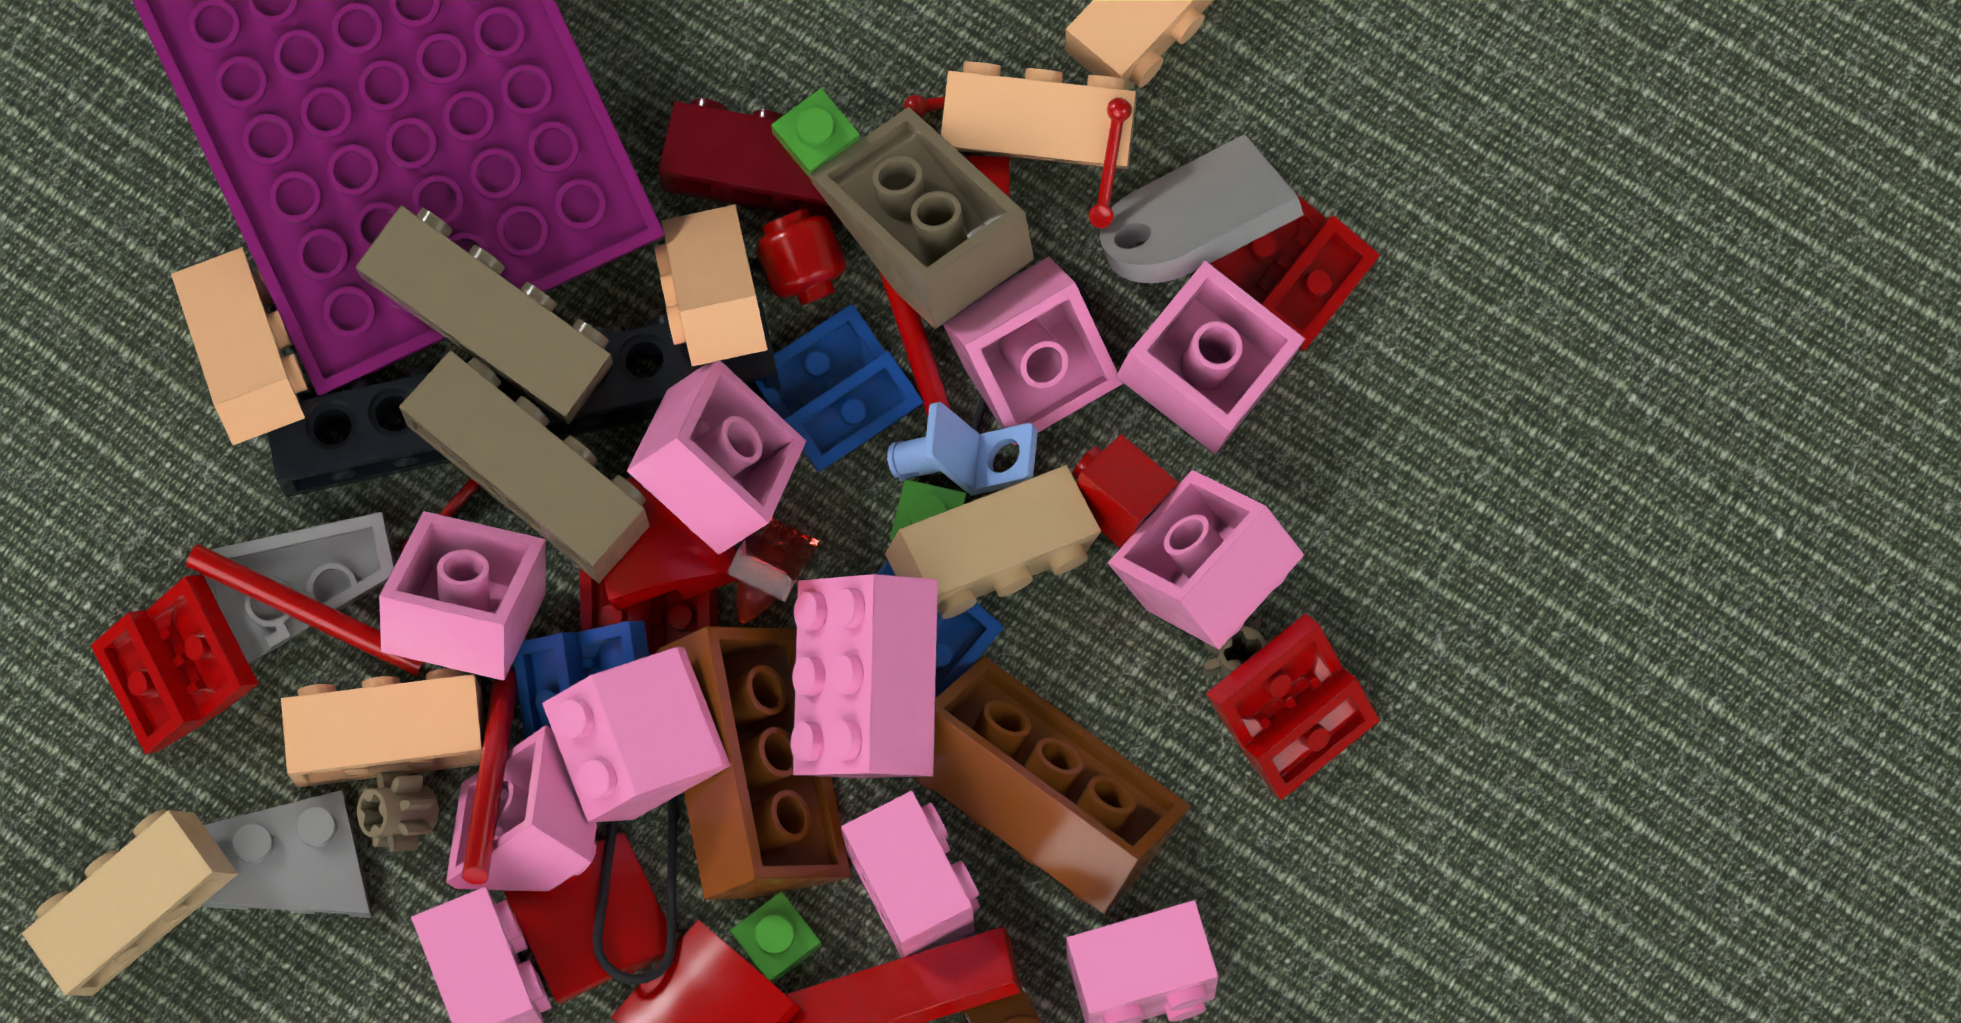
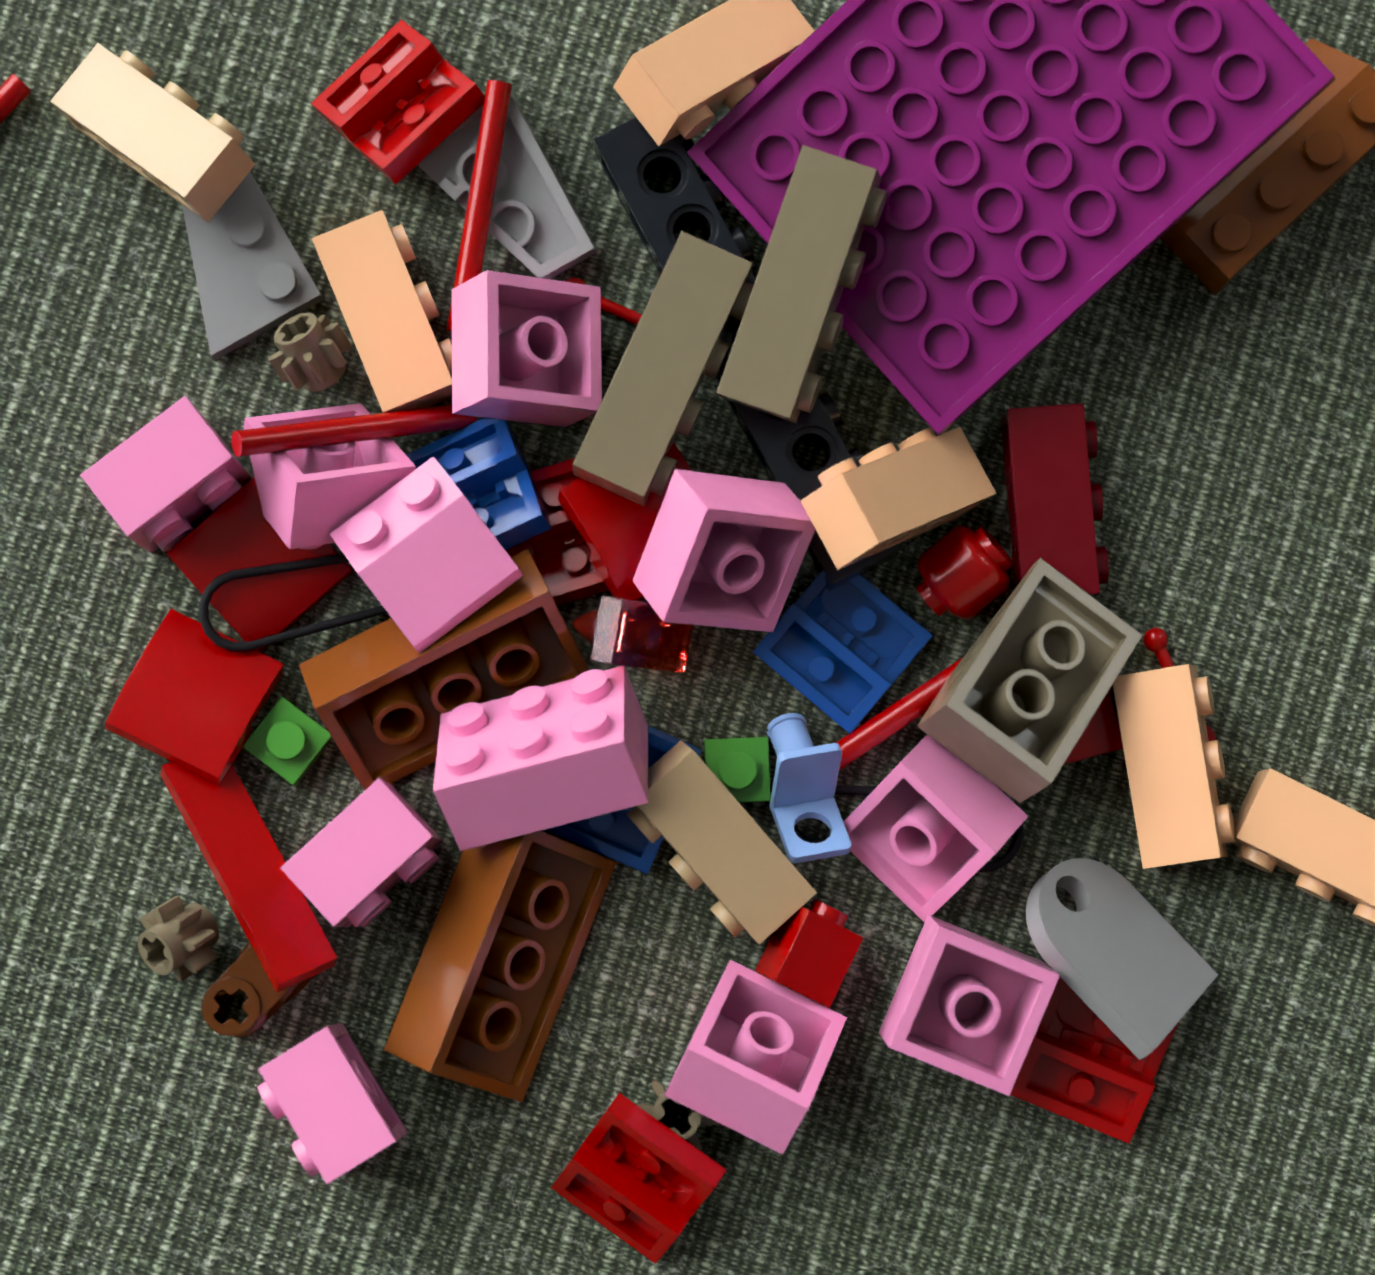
camera: 70 degrees right, 10 degrees up
(815, 132) = (1086, 551): bright green plate -> none
(1101, 214) = (1088, 856): red hinge -> none

